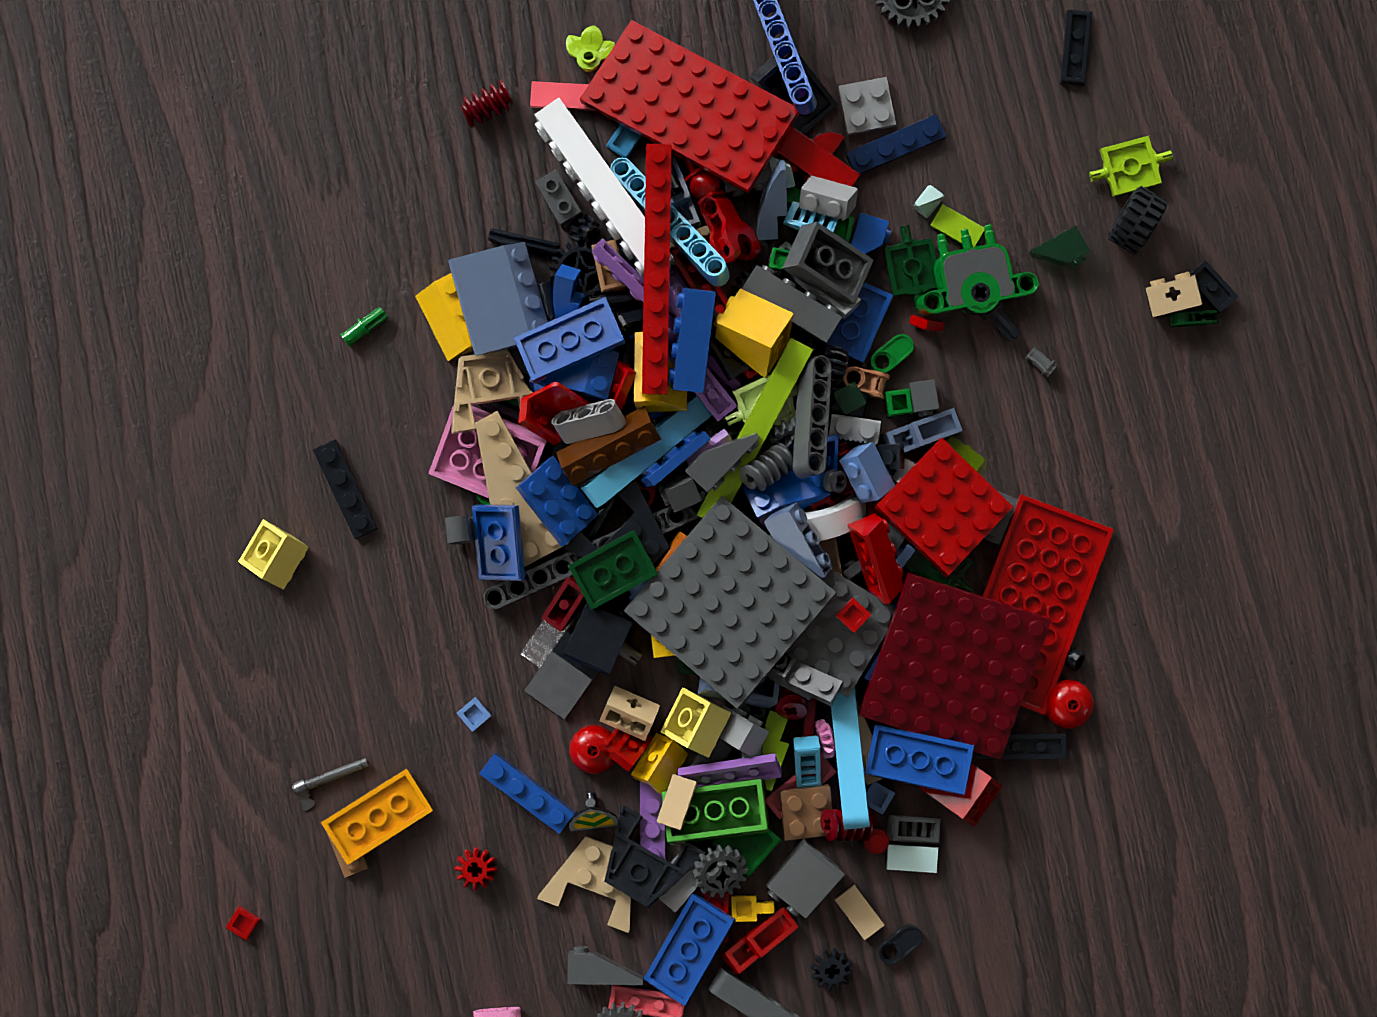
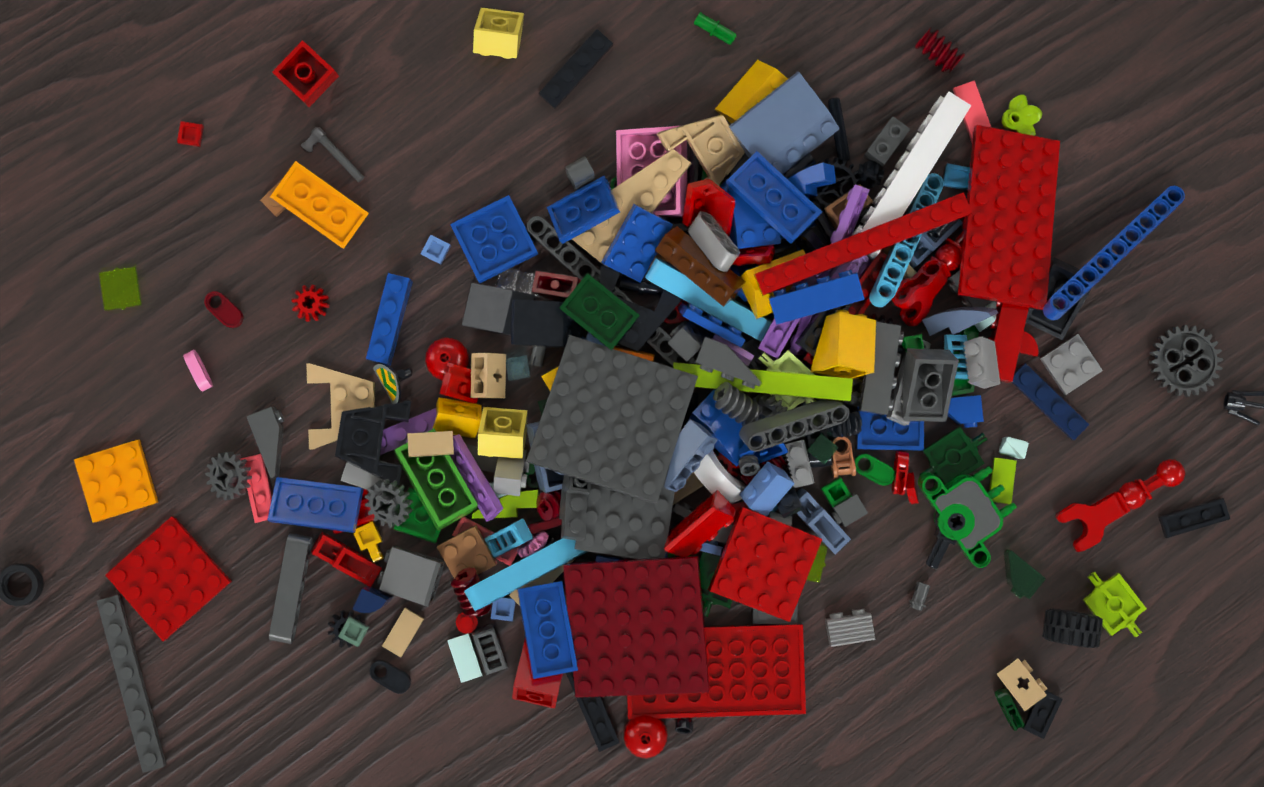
camera: 65 degrees right, 0 degrees up
(232, 774) = (305, 73): none -> red brick
(449, 961) = (227, 312): none -> dark red piece
(488, 648) = (494, 239): none -> blue plate
(633, 679) = (517, 368): none -> clear light blue plate
(813, 931) = (371, 600): none -> dark blue brick
(838, 962) = (353, 631): none -> sand green tile
(853, 615) = (644, 525): red plate -> none
(906, 327) = (901, 470): none -> red piece
(1029, 120) = (1115, 505): none -> red piece
(1044, 447) = (849, 628): none -> light grey brick

